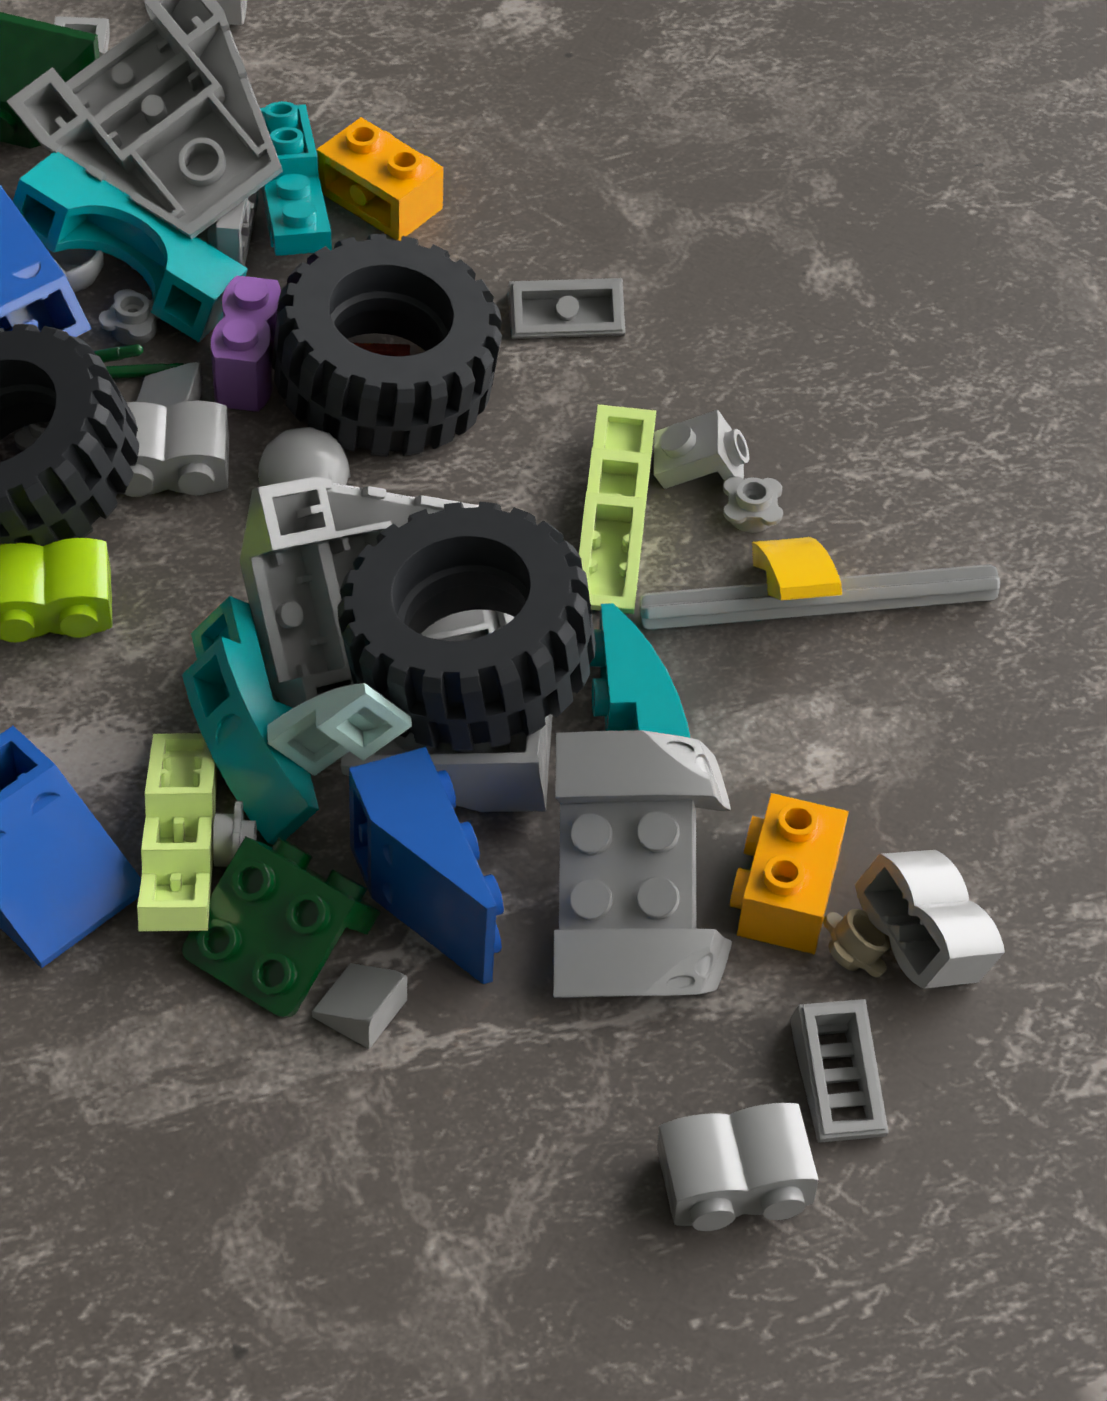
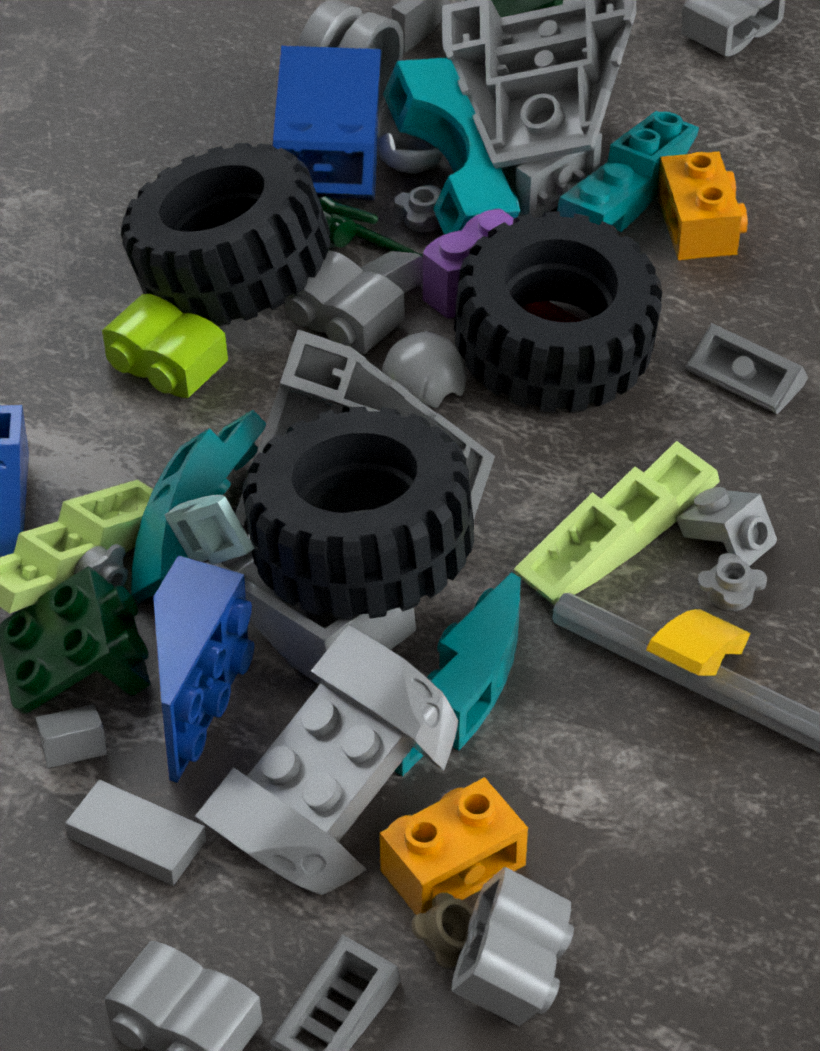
camera: 45 degrees right, 5 degrees down
(514, 1048) = (136, 832): none -> light grey tile

